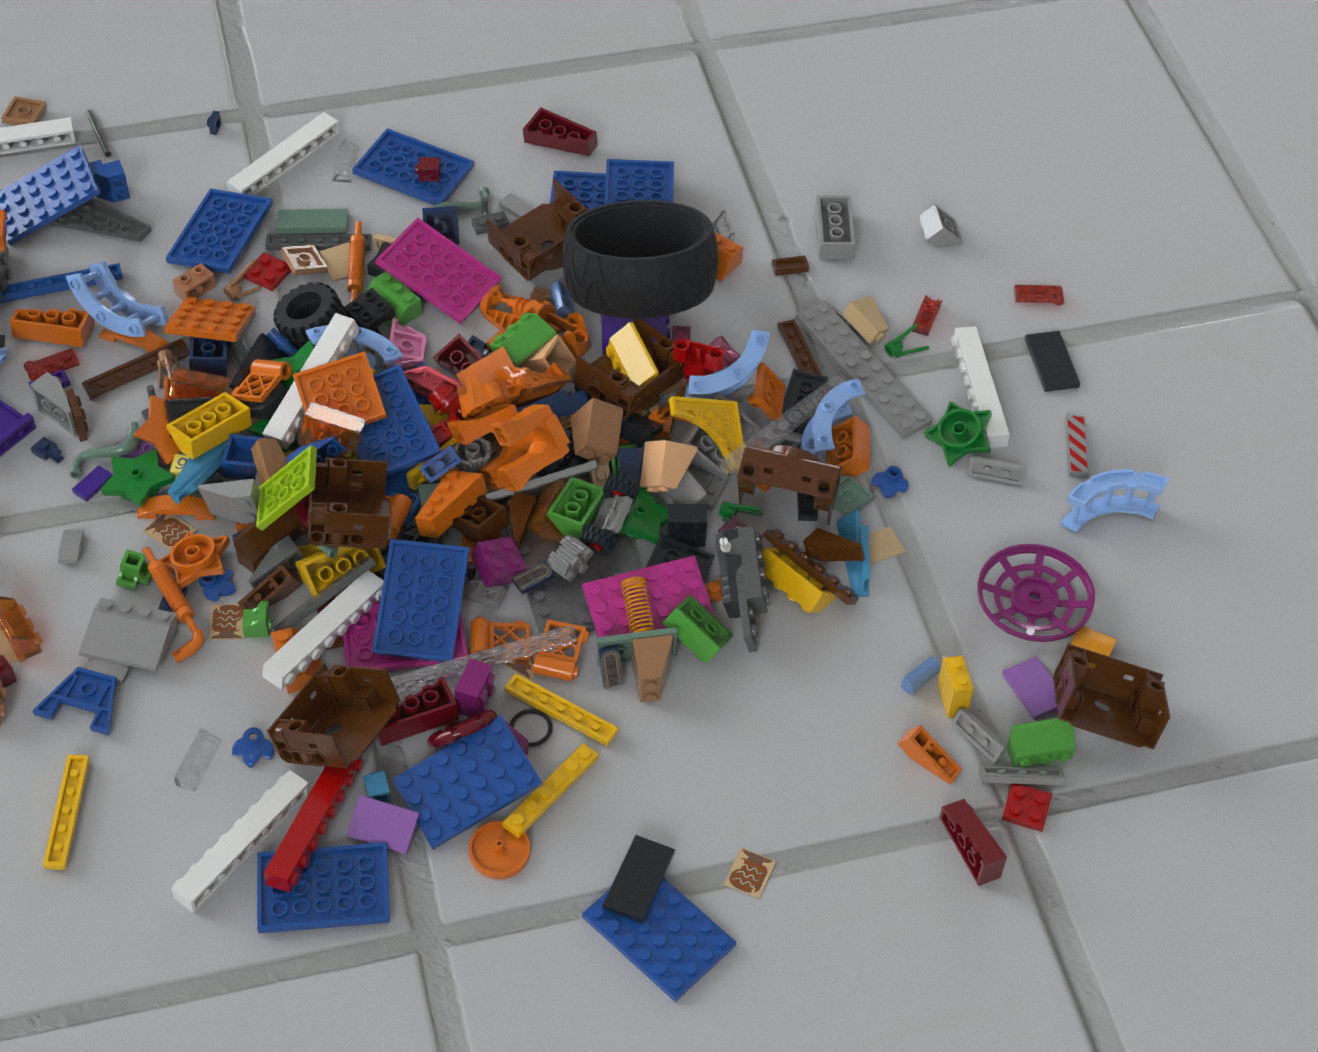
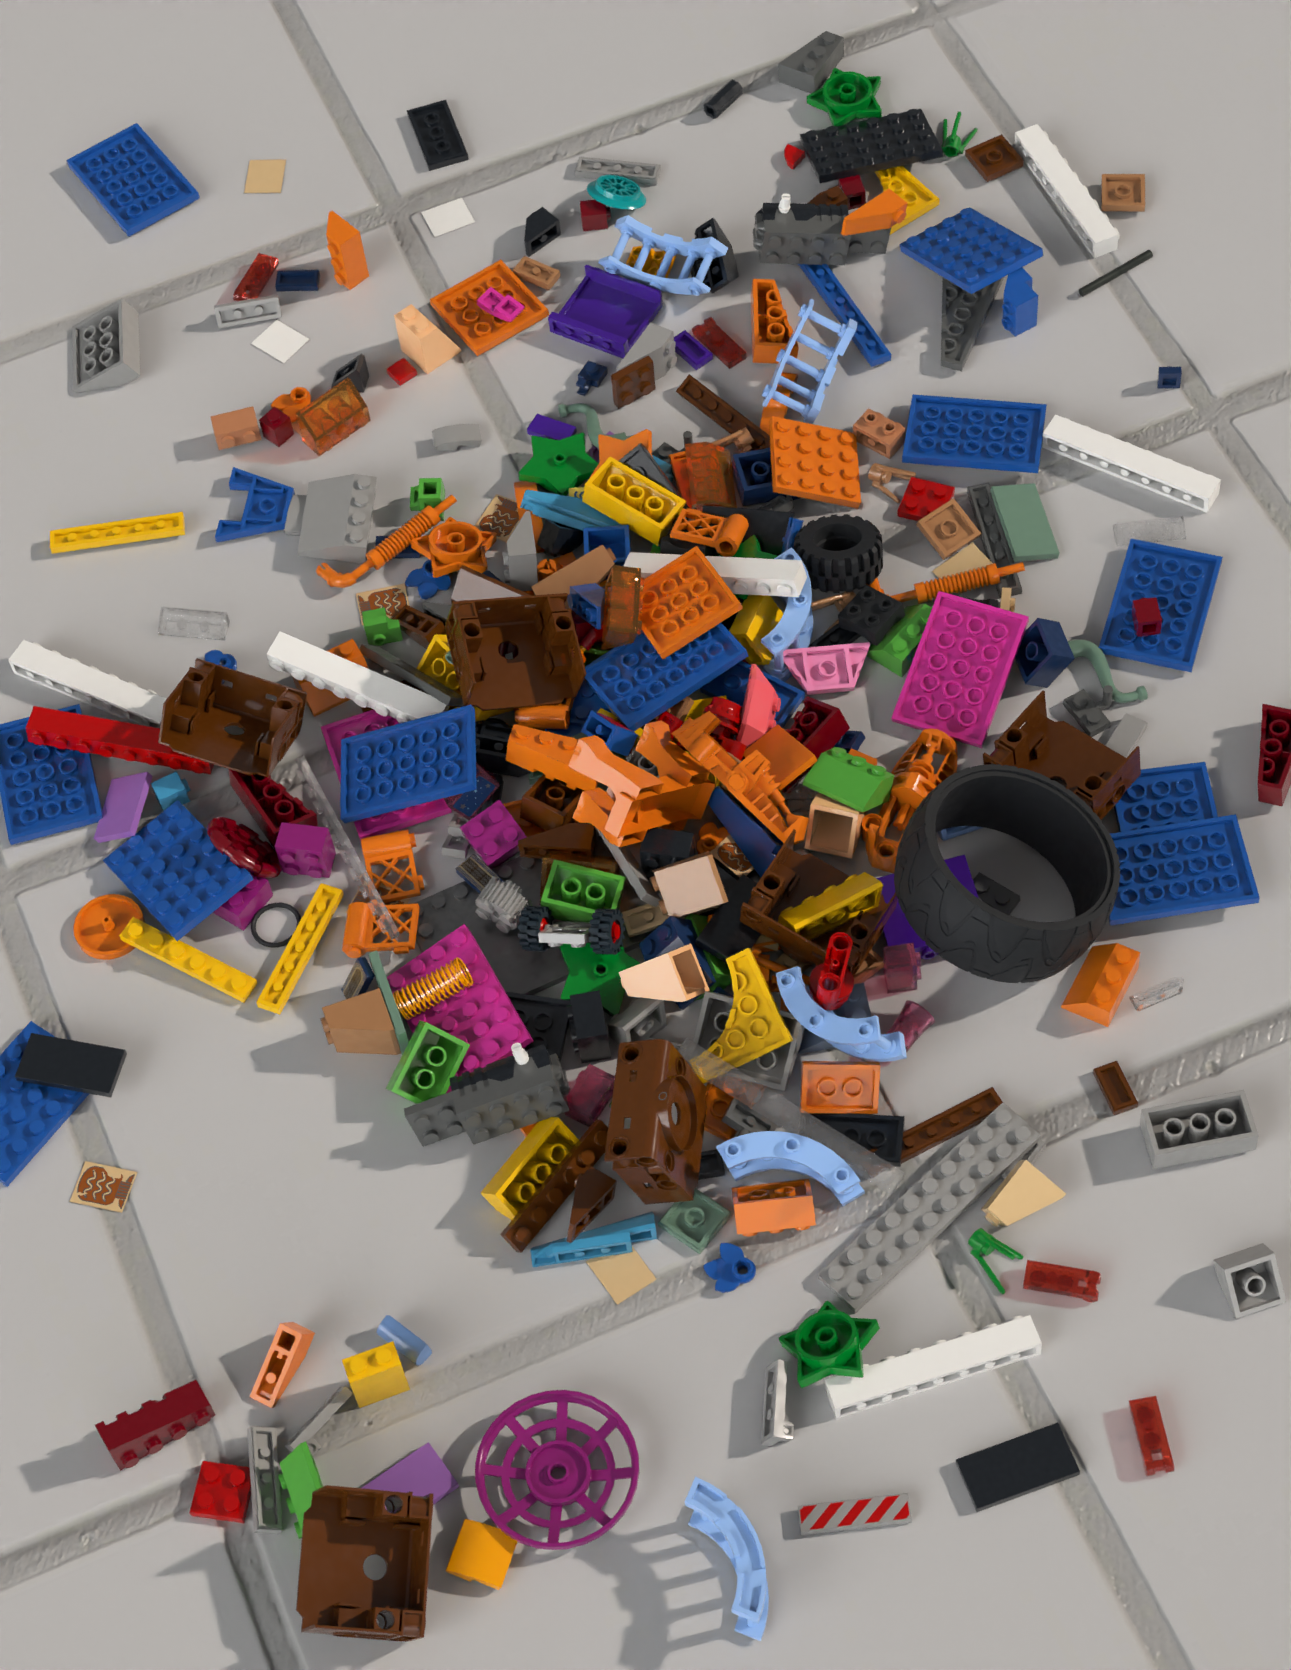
camera: 90 degrees right, 5 degrees up
(286, 487) = (516, 583): lime plate -> none

